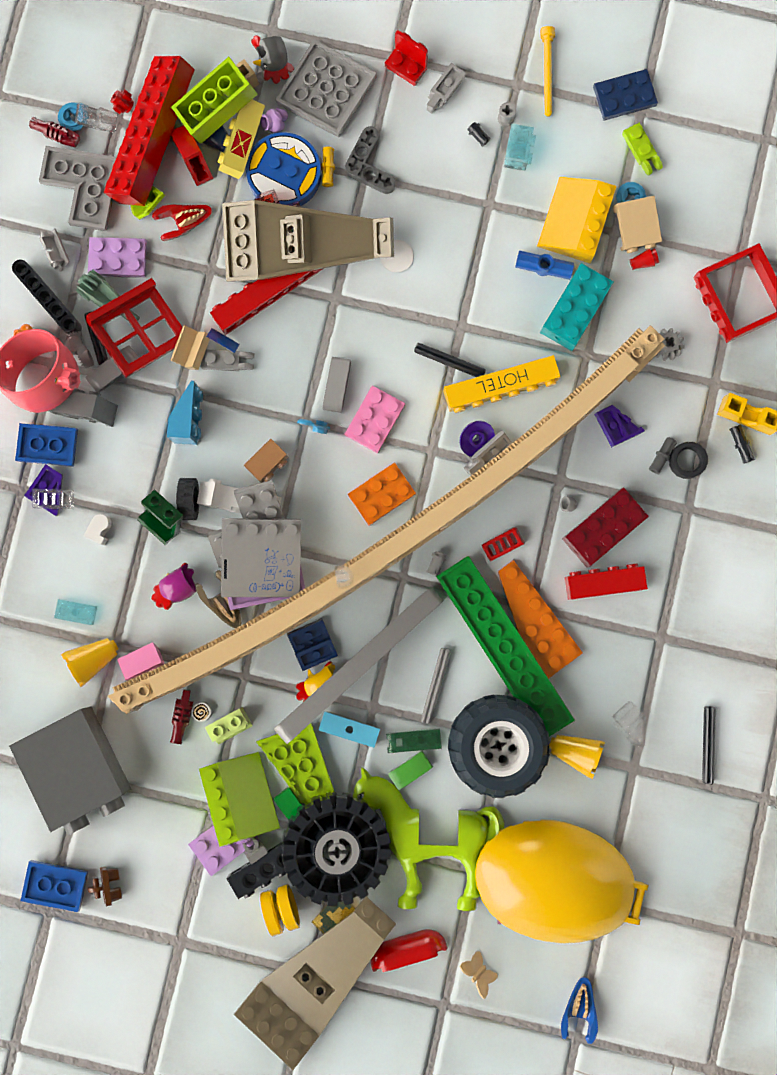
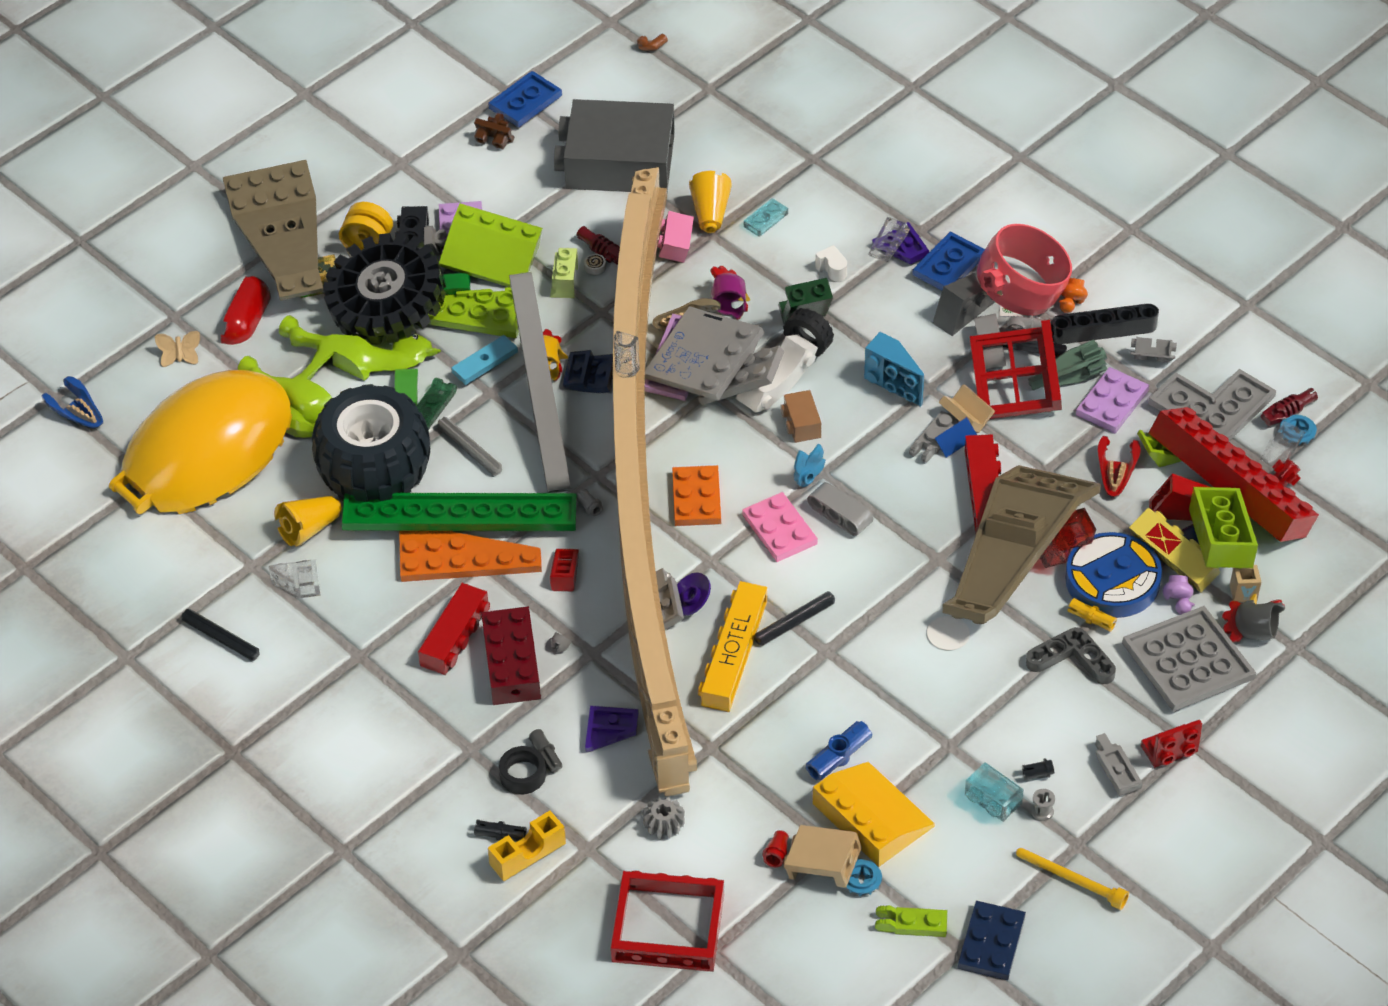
camera: 120 degrees right, 35 degrees down
(576, 307) = (768, 753): teal brick -> none

